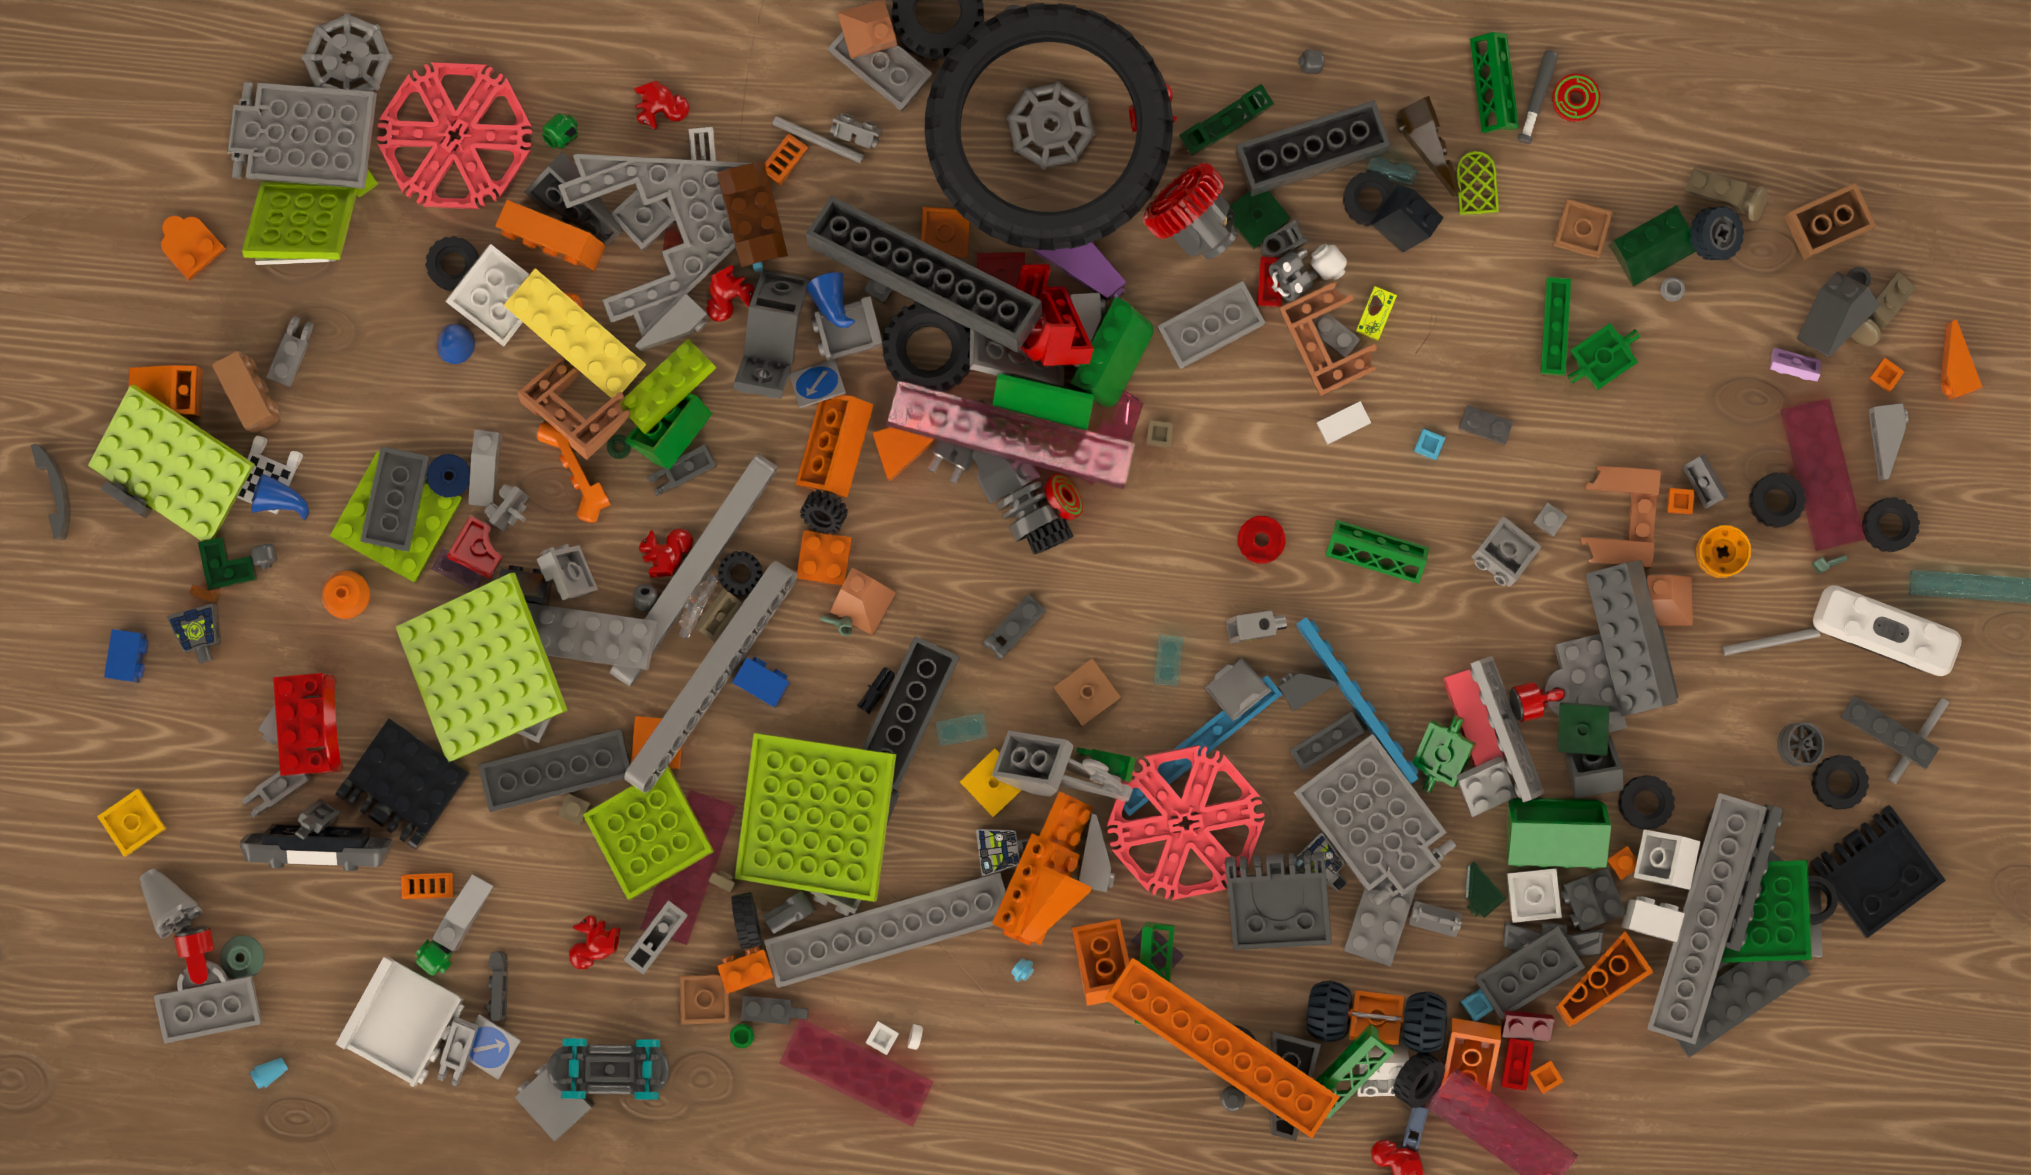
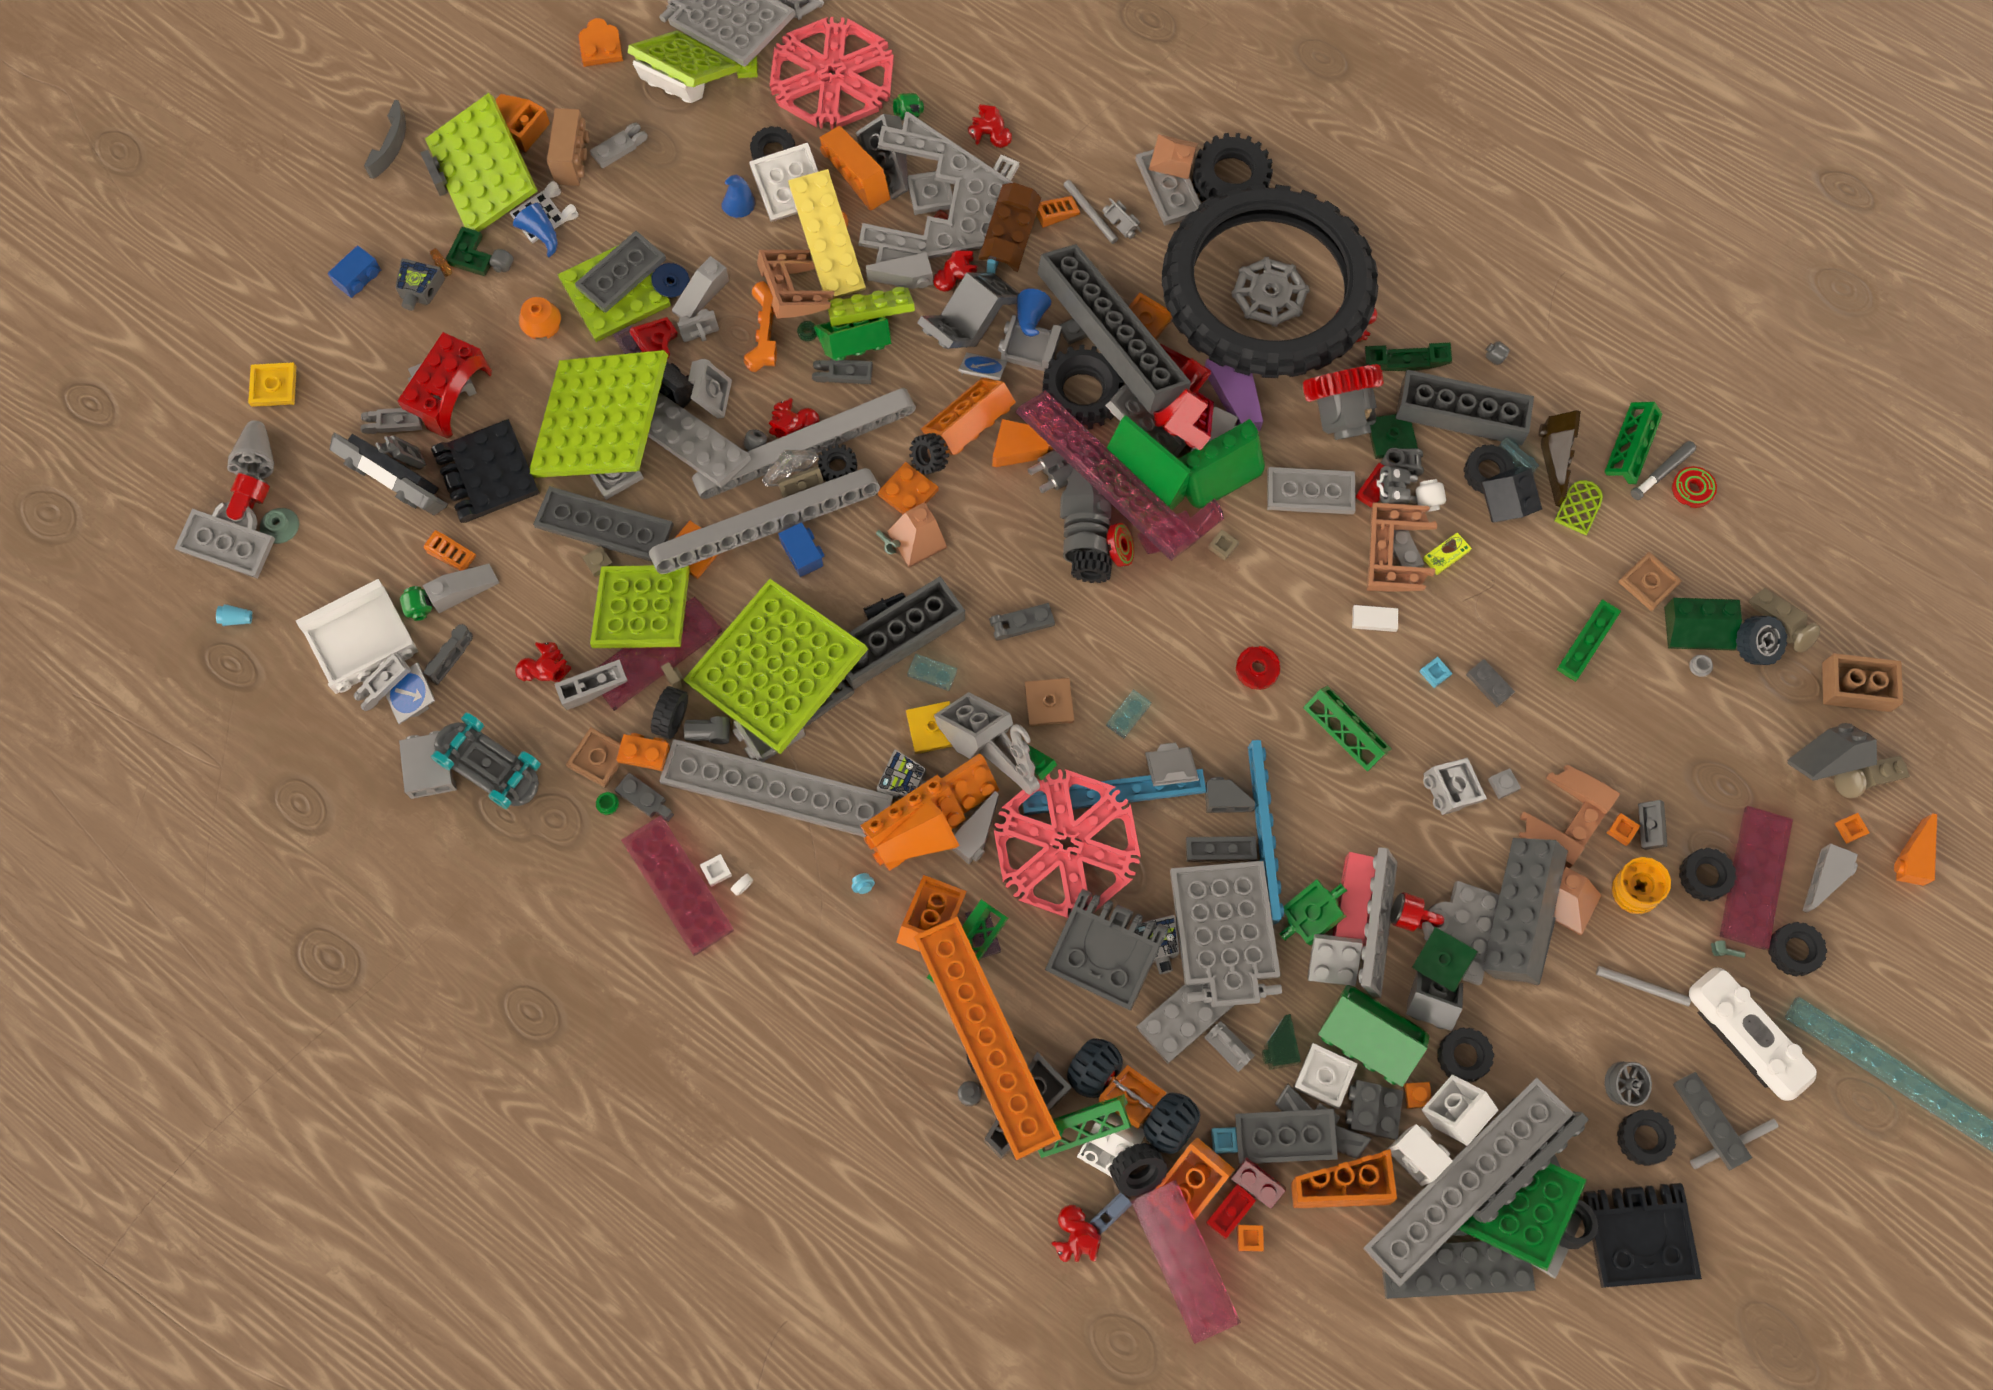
camera: 25 degrees right, 15 degrees down
(1247, 628) = (1214, 724): light grey torso -> none
(1603, 356) = (1617, 684): green plate -> none
(1795, 364) = (1782, 783): lavender plate -> none

